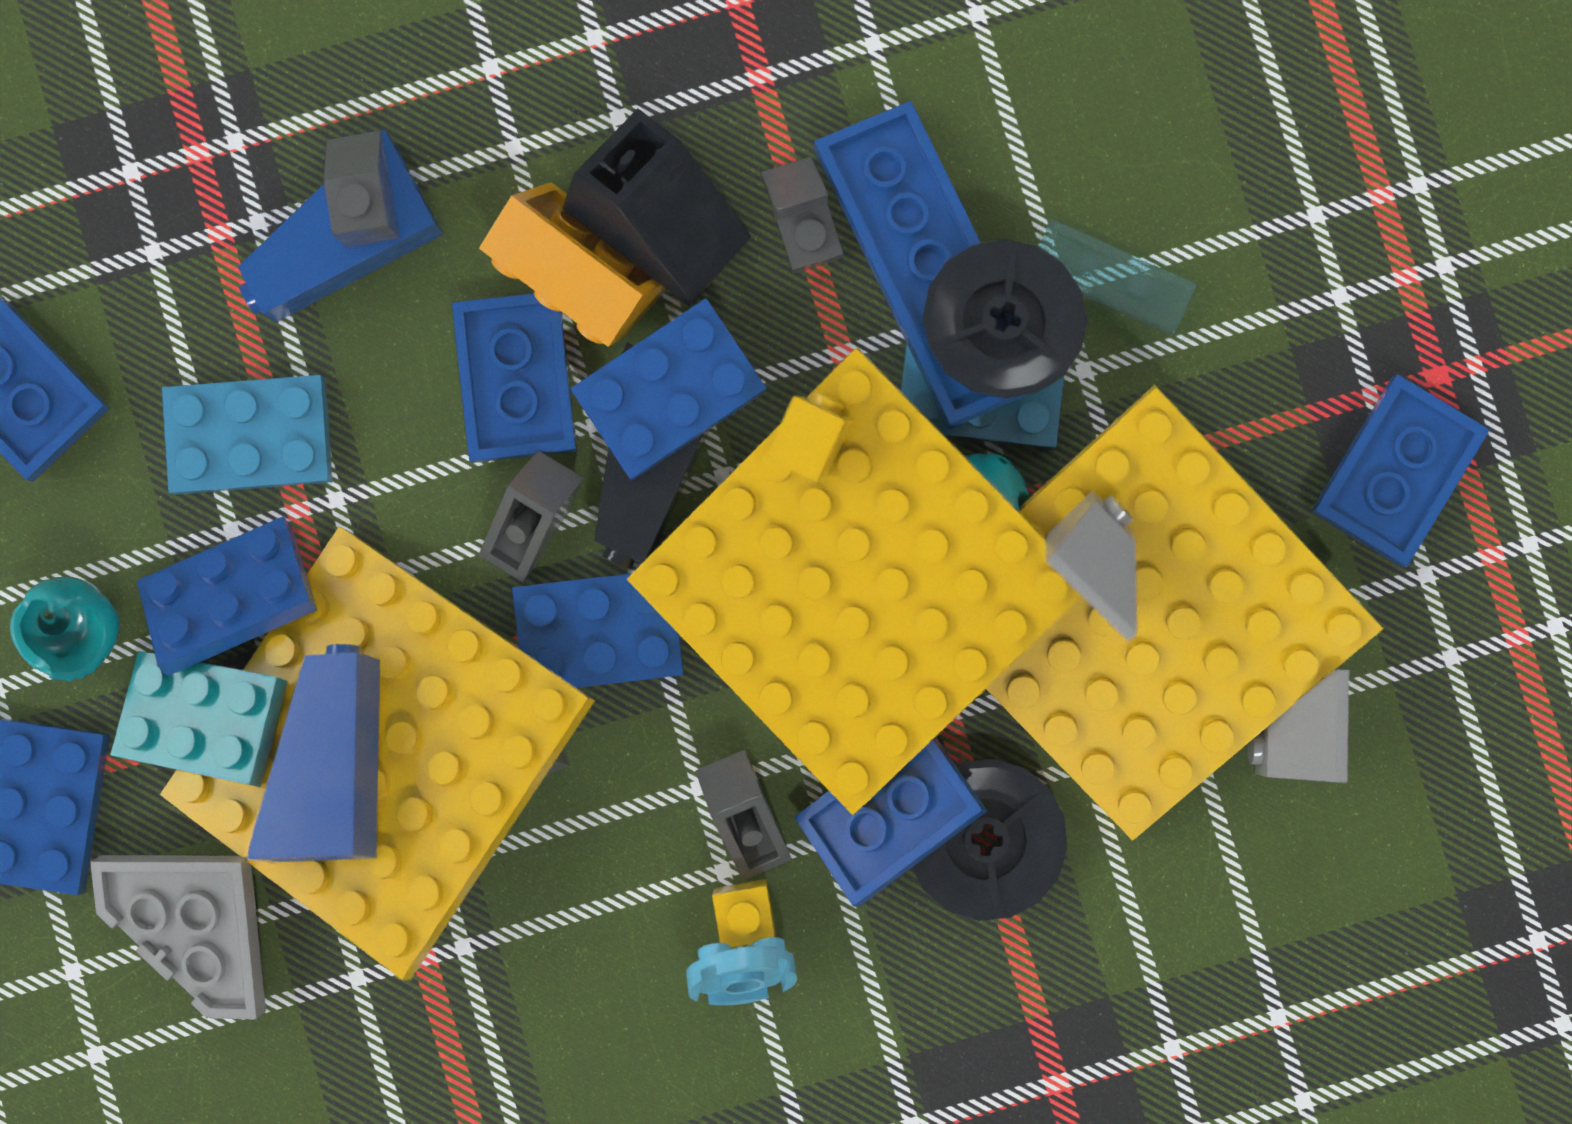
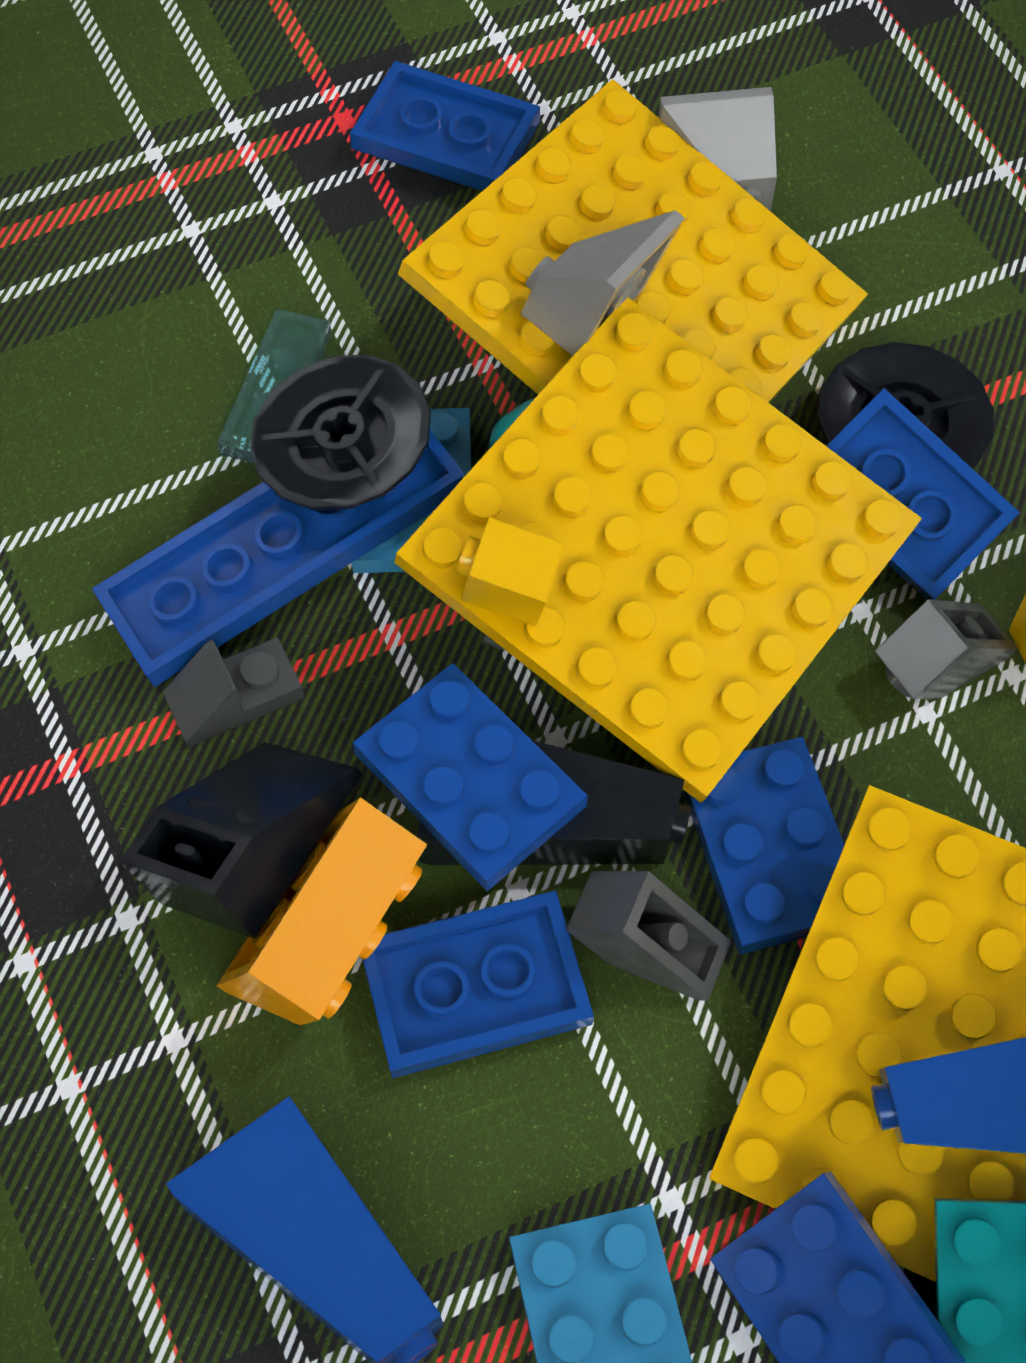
camera: 100 degrees left, 25 degrees down
(359, 190) = (250, 1188): dark grey slope -> none

